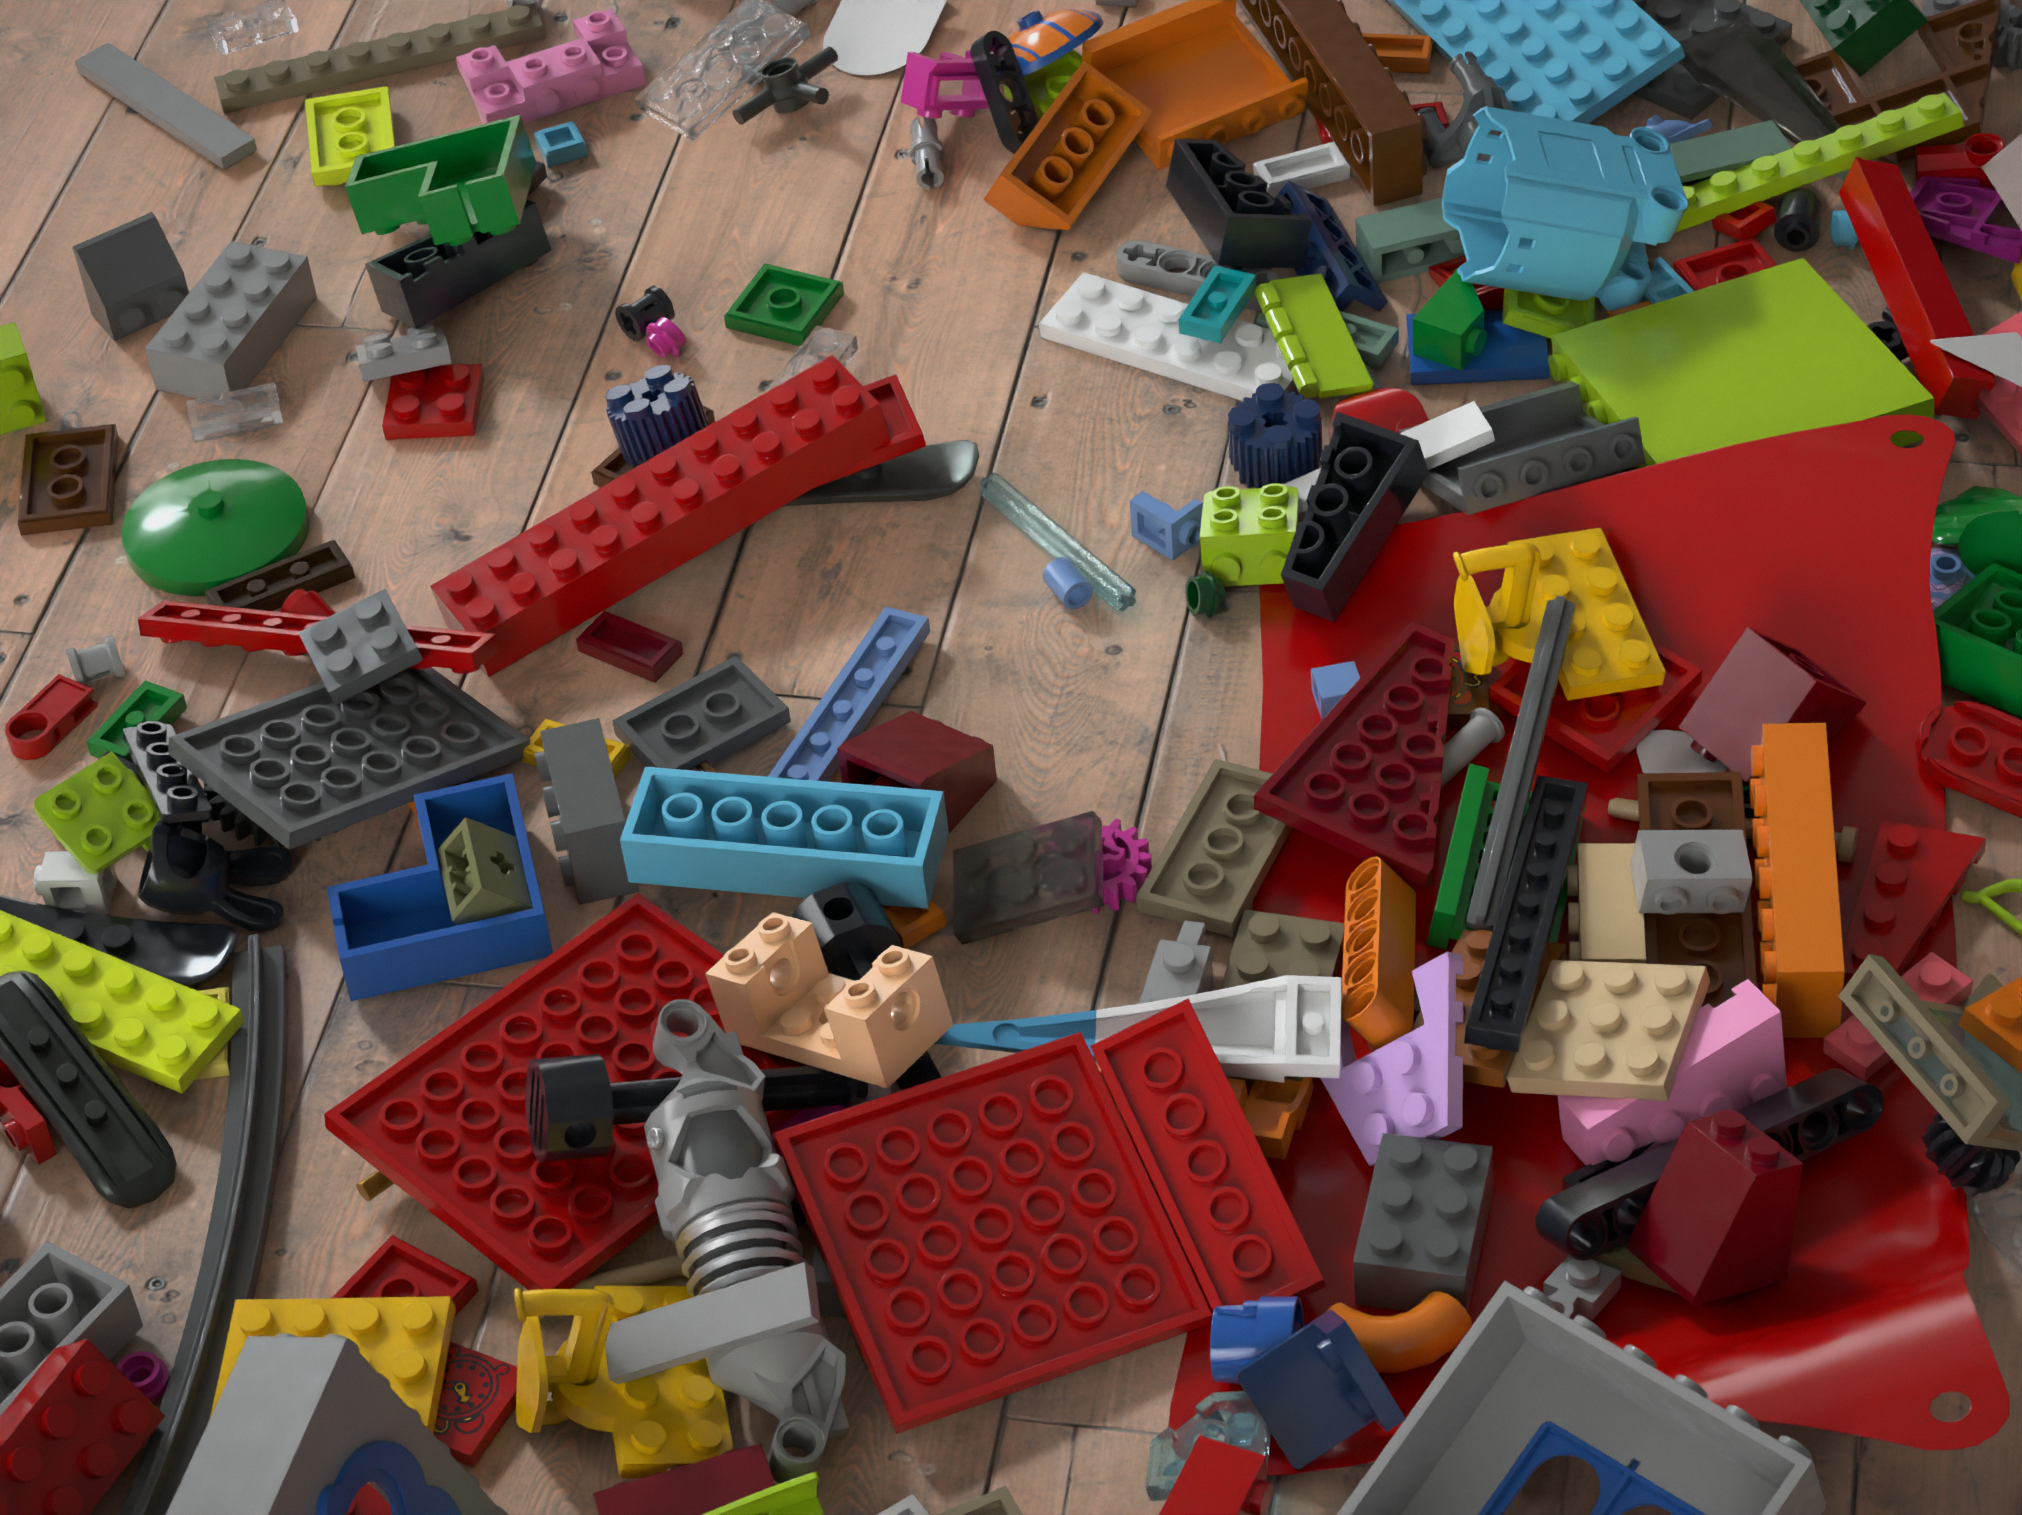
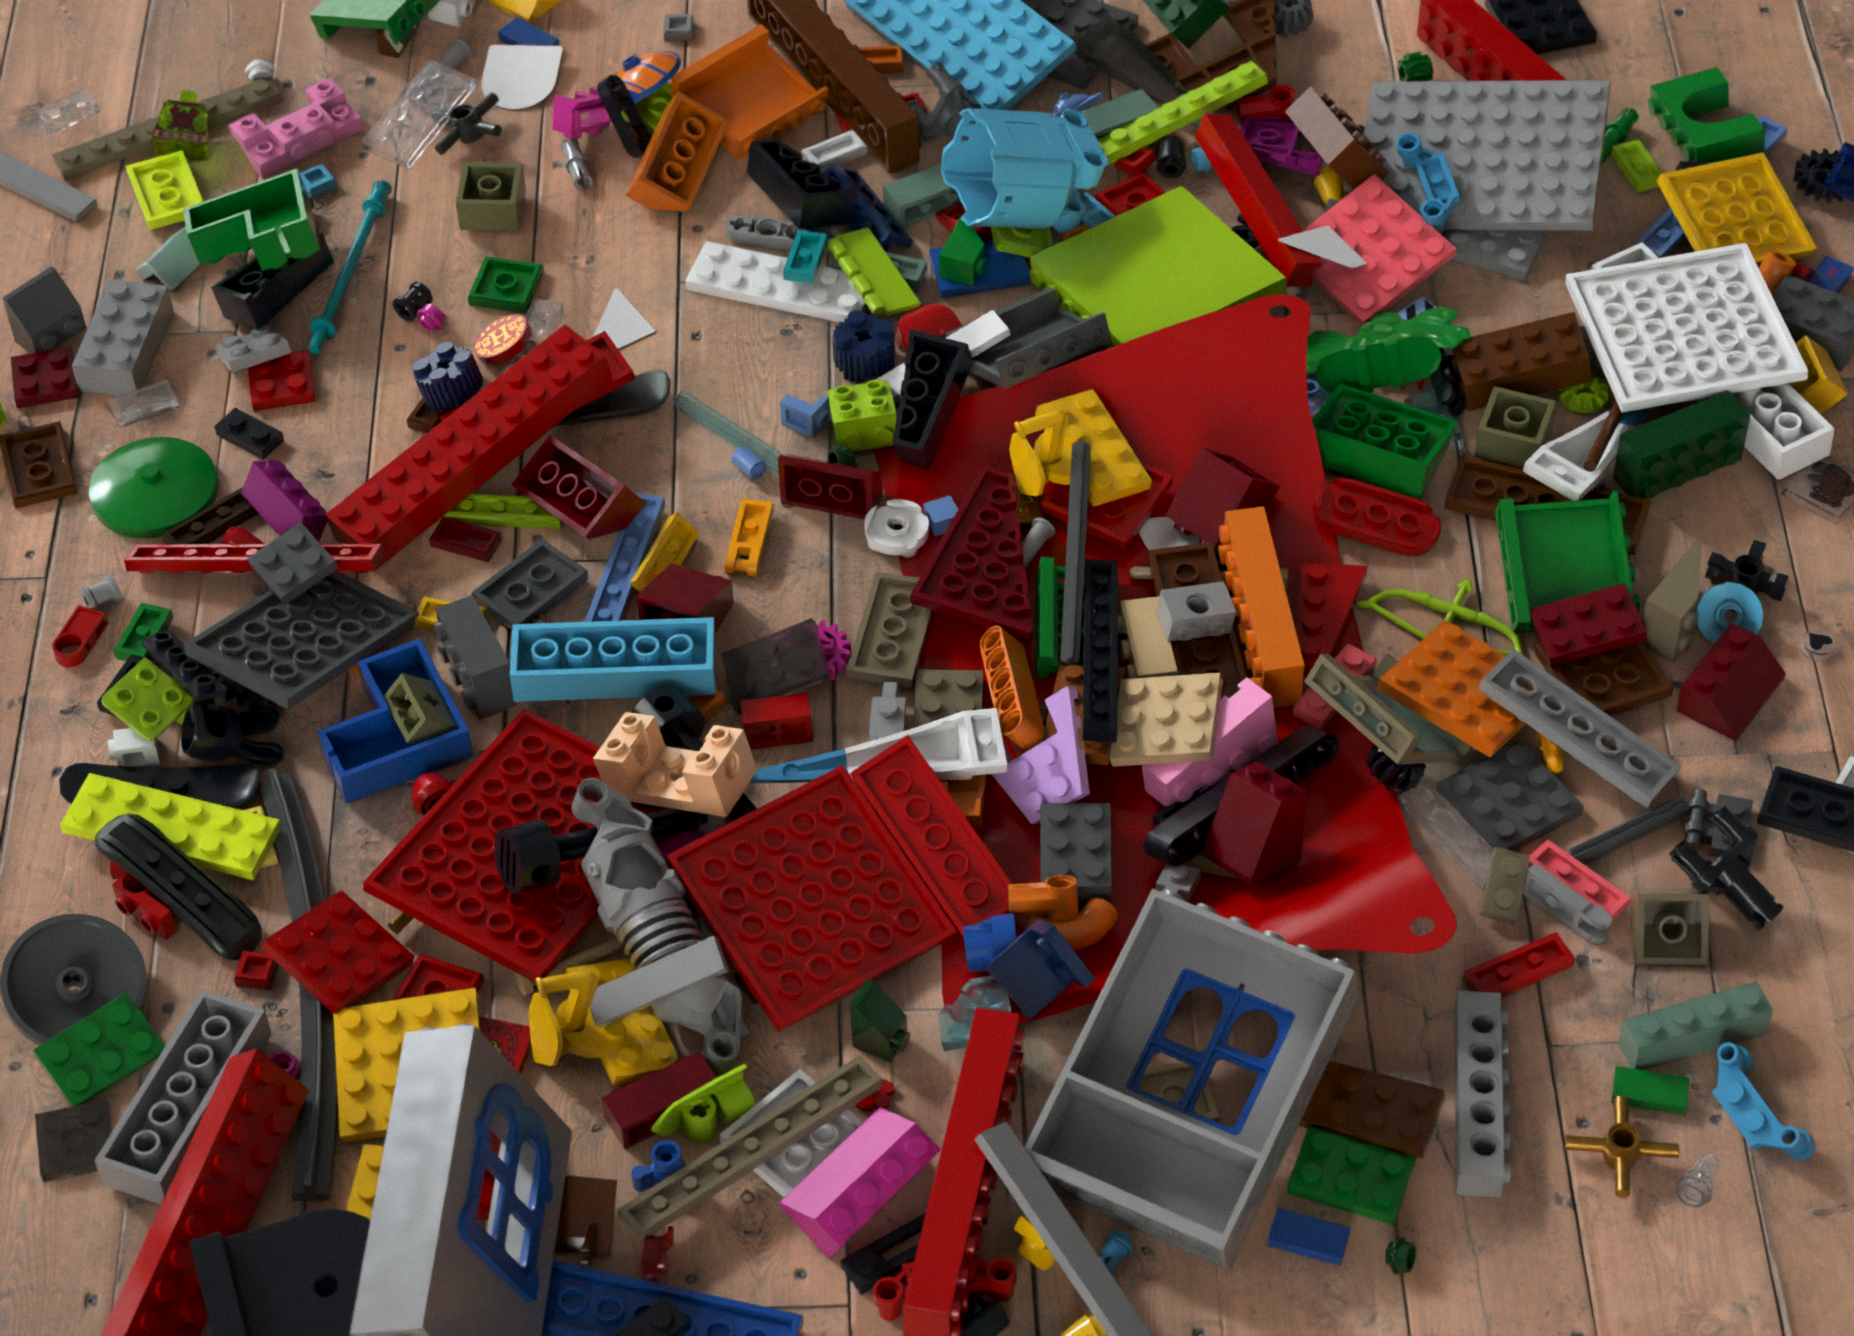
camera: 15 degrees left, 5 degrees up
(109, 366) = (44, 377): none -> dark red plate
(150, 1226) = (255, 970): none -> red tile
(268, 1216) = (338, 952): none -> red plate
(327, 232) = (171, 261): none -> light aqua panel
(368, 468) = (249, 433): none -> black plate
(381, 556) = (282, 498): none -> magenta brick
(393, 55) = (182, 127): none -> clear neon green torso
(466, 992) = (427, 791): none -> red cone
(628, 183) = (373, 206): none -> teal bar
(703, 614) = (502, 511): none -> lime tile
(754, 374) = (502, 339): none -> tile
(790, 183) = (491, 196): none -> olive brick
(800, 594) = (577, 491): none -> dark red slope
(919, 688) = (669, 547): none -> yellow plate
(936, 373) = (623, 321): none -> white sticker
(1012, 960) = (777, 720): none -> red hinge
(1040, 689) = (749, 537): none -> light orange plate
(1049, 1439) = (877, 1023): none -> dark green slope
(1176, 629) = (829, 486): none -> dark red slope
(1264, 721) = (896, 542): none -> white plate
(1370, 1281) = (1054, 898): none -> orange piece

